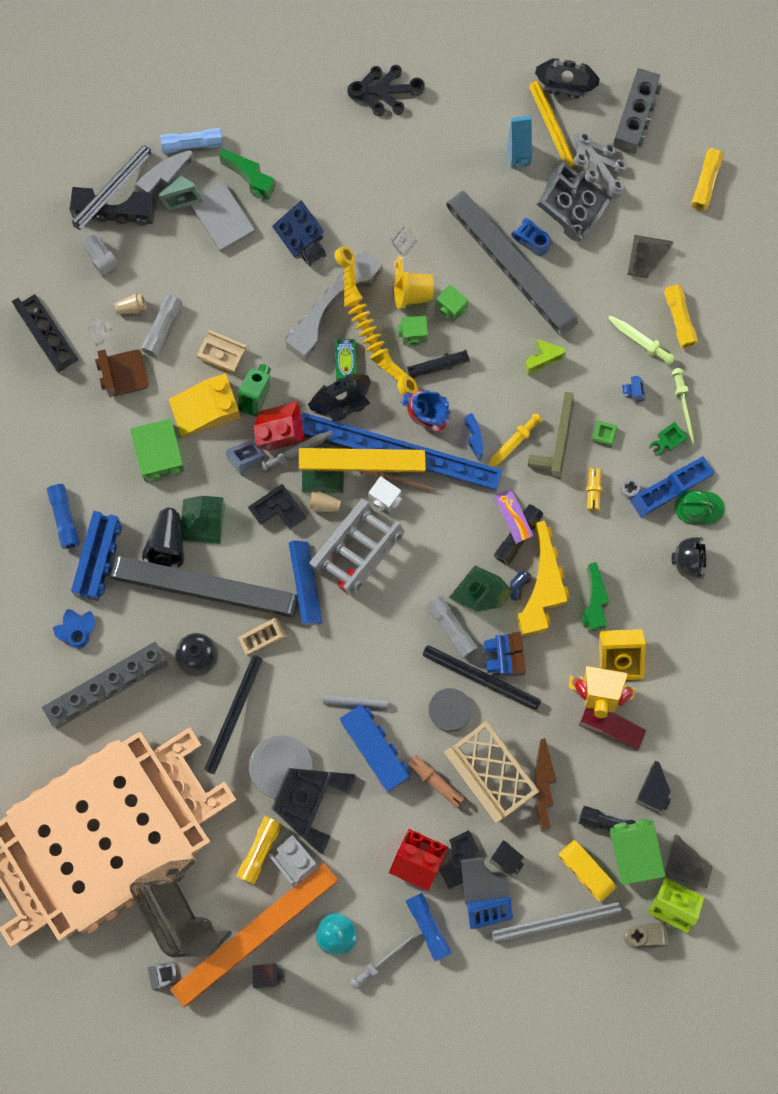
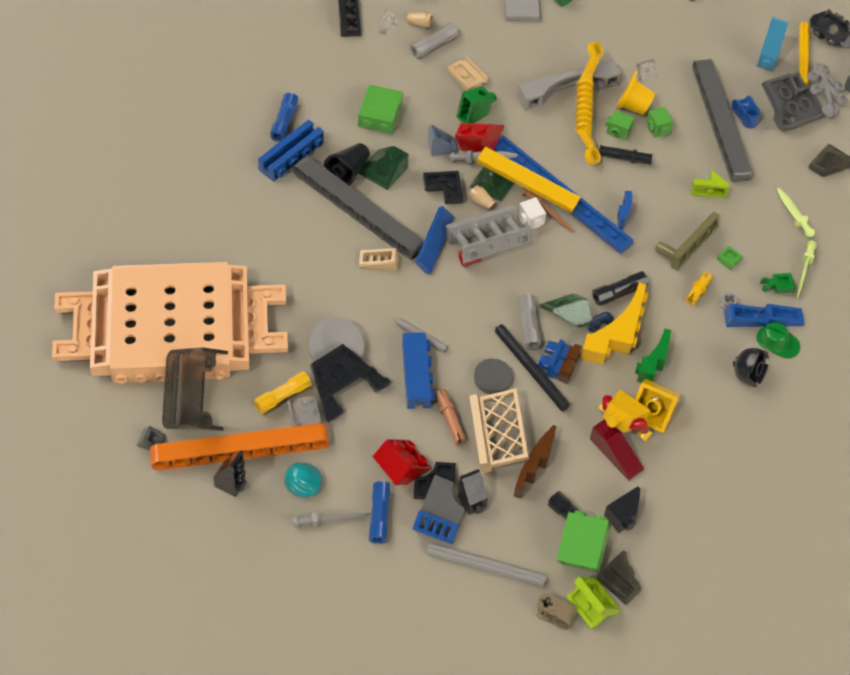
camera: 25 degrees right, 20 degrees down
(73, 626) = (244, 188): blue plate -> none
(105, 685) = (241, 230): dark grey brick -> none
(122, 372) = (385, 54): reddish brown bracket -> none
(196, 654) = (322, 245): black cylinder -> none
(204, 406) = (434, 100): yellow slope -> none
(233, 714) = (323, 294): black axle -> none
(298, 228) = (572, 29): dark blue hinge -> none
(313, 253) = (573, 48): black bush -> none
(337, 409) = (553, 138): black piece -> none
(345, 357) = (556, 121): tile -> none
(427, 409) = (599, 175): blue hair -> none
(513, 516) = (623, 273): medium lavender sticker -> none
(521, 434) = (663, 227): yellow sword -> none
(587, 871) = (534, 539): yellow beam -> none
(635, 389) = (771, 238): blue tile -> none
(684, 329) = (835, 211): yellow axle -> none

